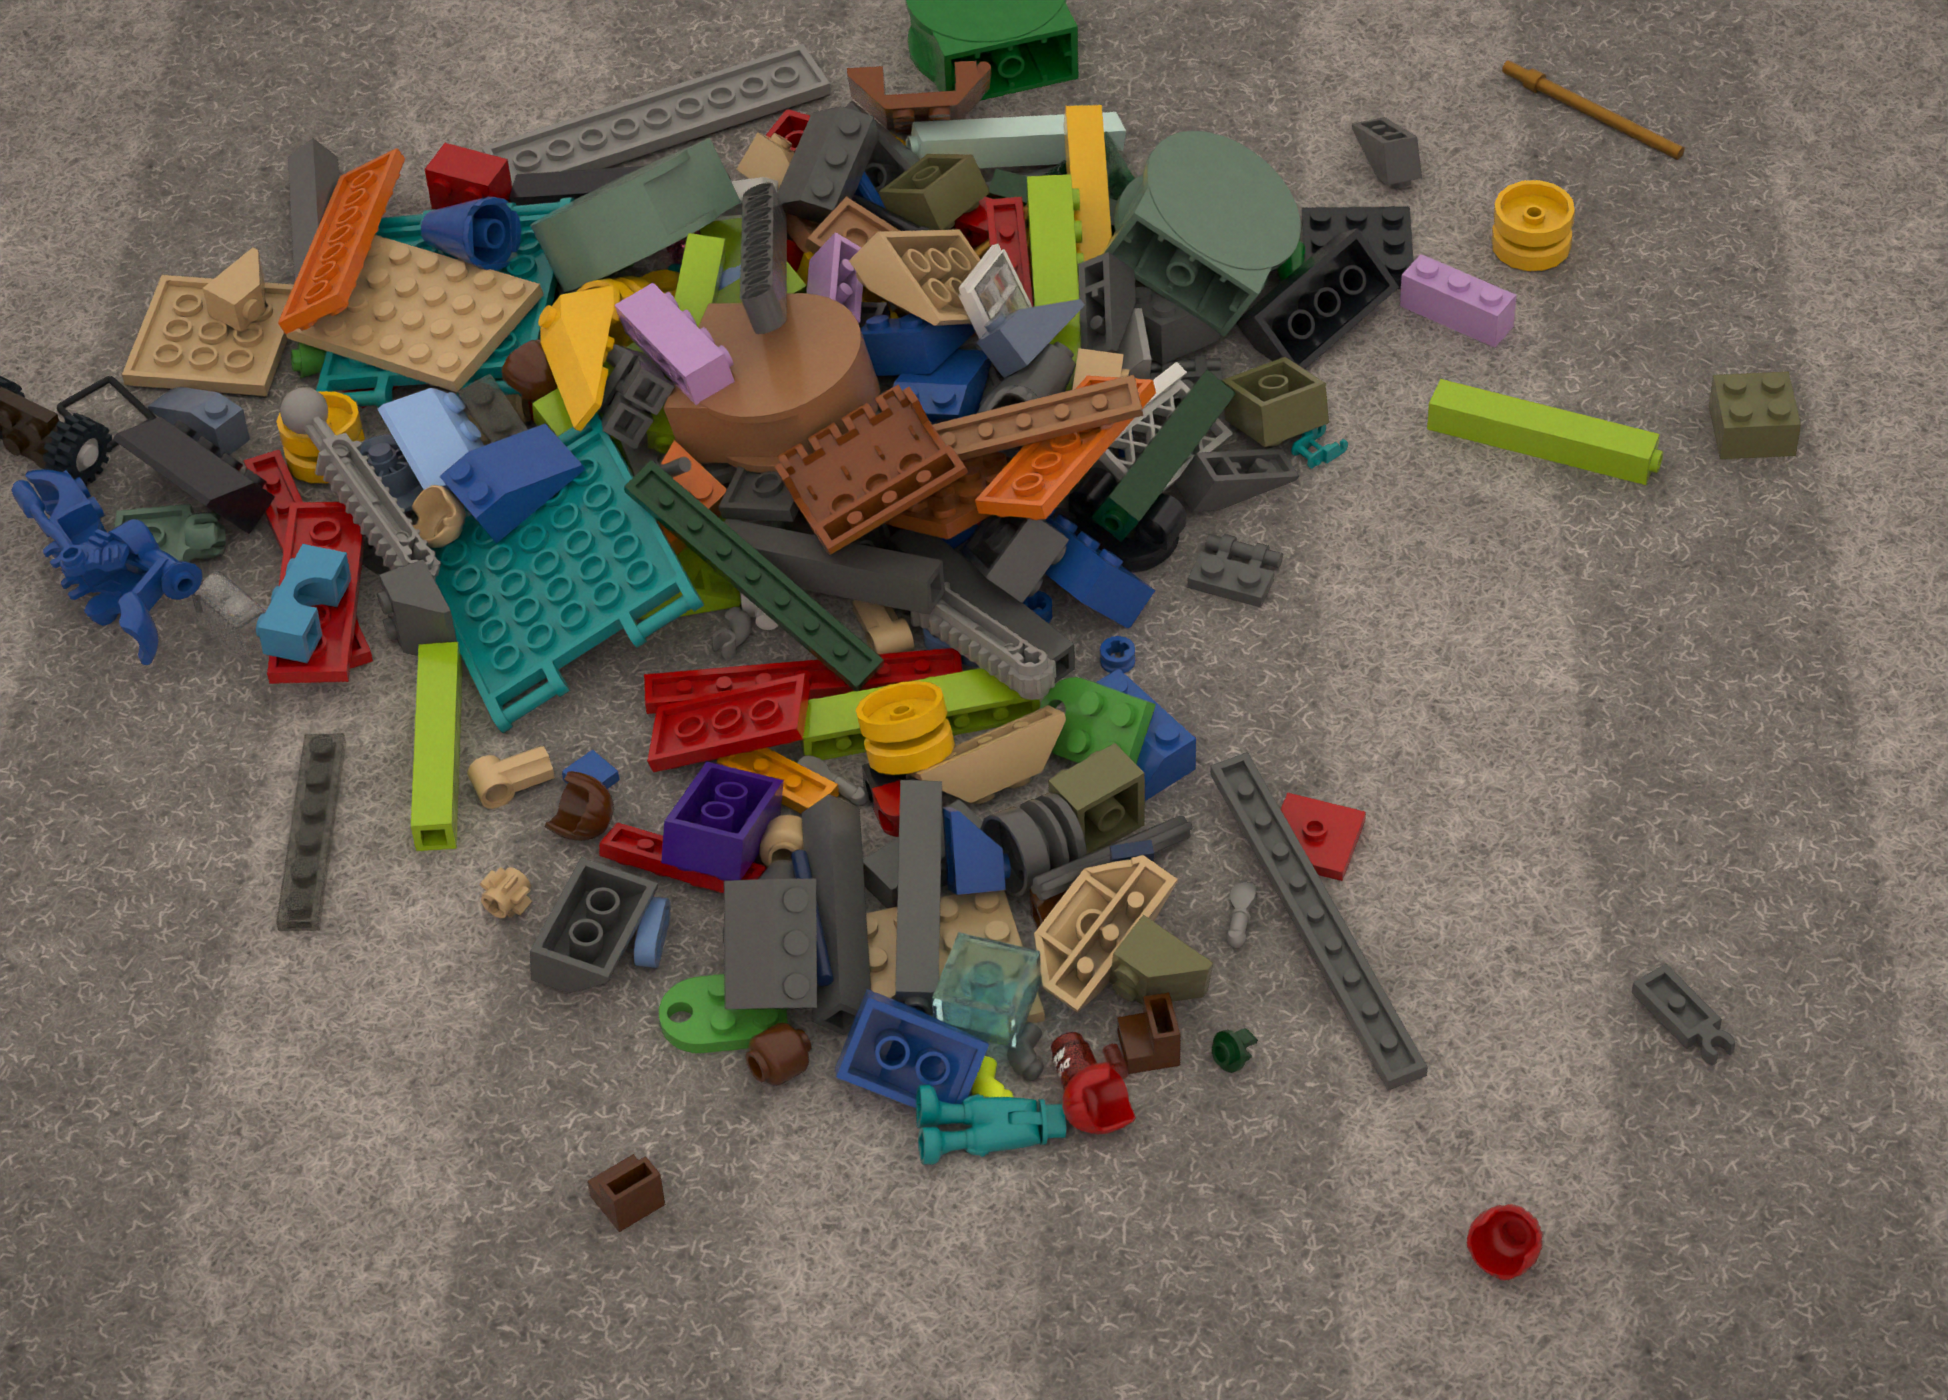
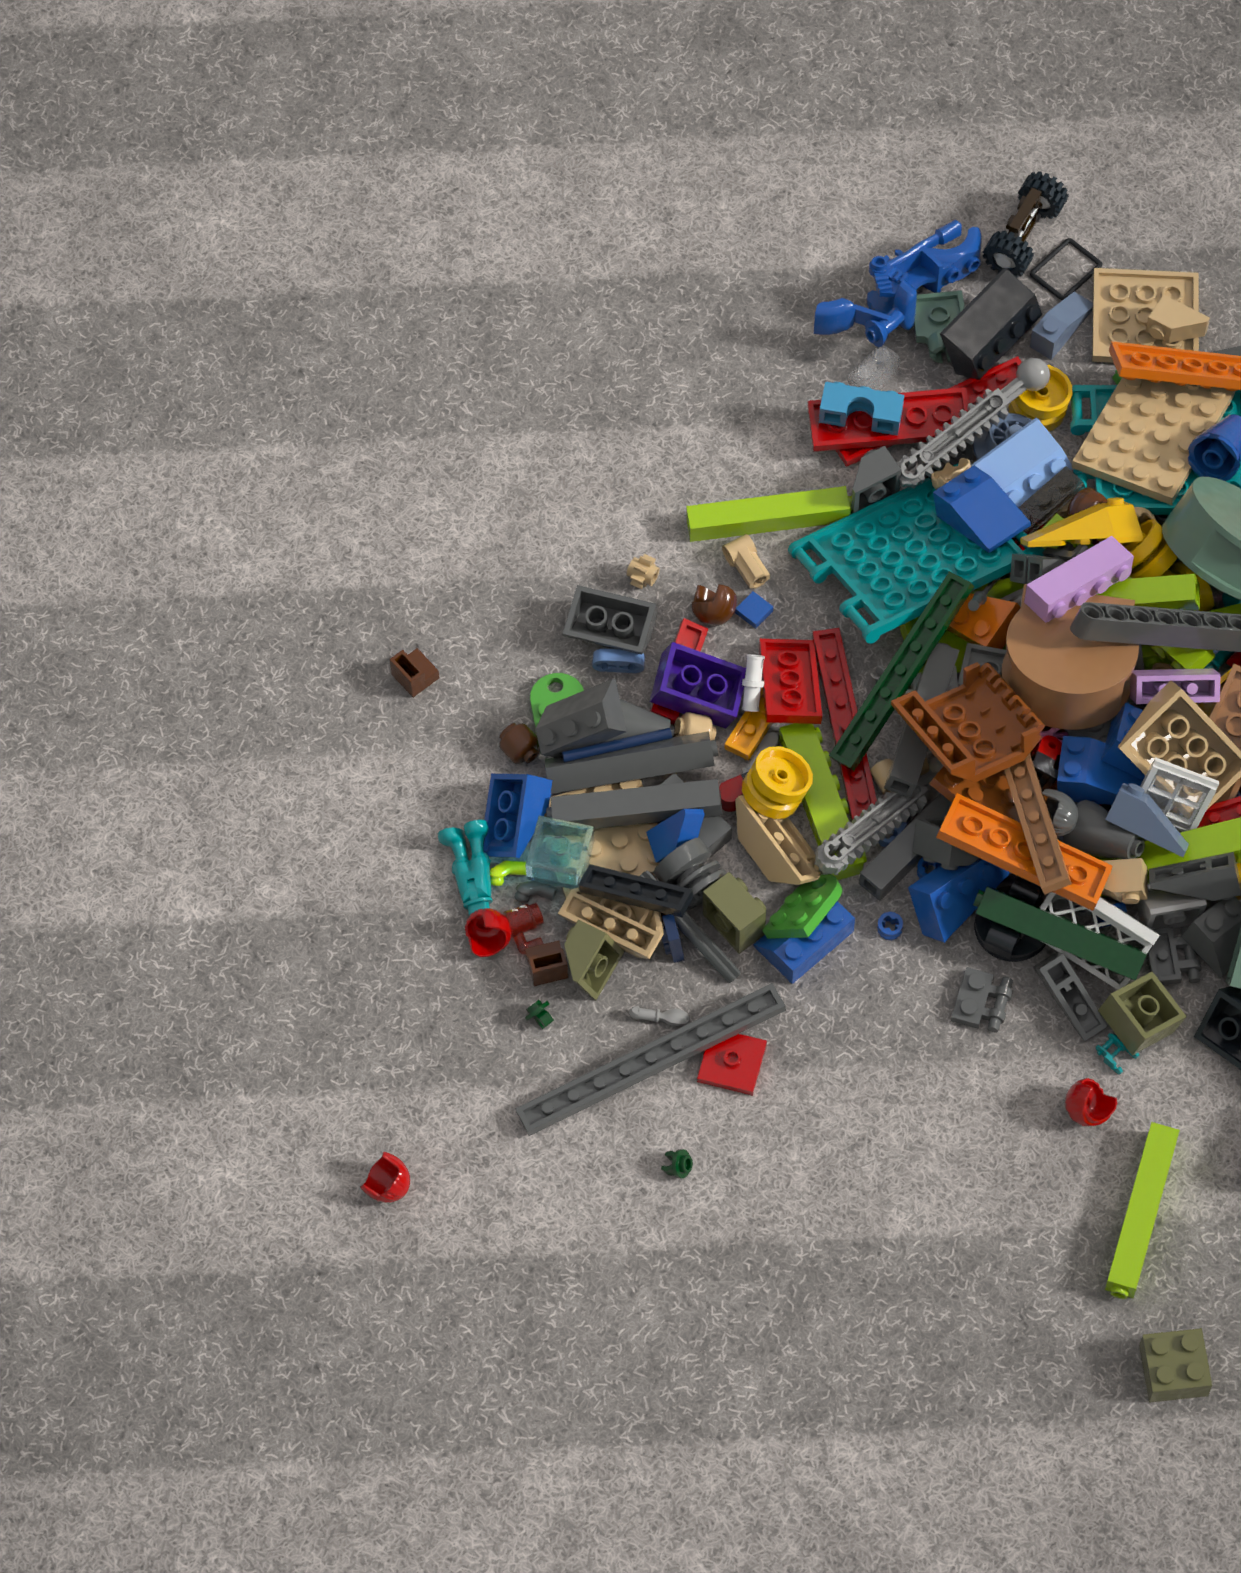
camera: 85 degrees right, 15 degrees up
(311, 833) = (695, 456): clear smoke plate -> none
(732, 751) = (753, 682): none -> white pin
(1071, 884) = (636, 890): none -> black plate
(1397, 469) = (1088, 1103): none -> red hair
(1475, 893) = (681, 1163): none -> dark green plate
(1683, 1012) = (586, 1297): dark grey plate -> none

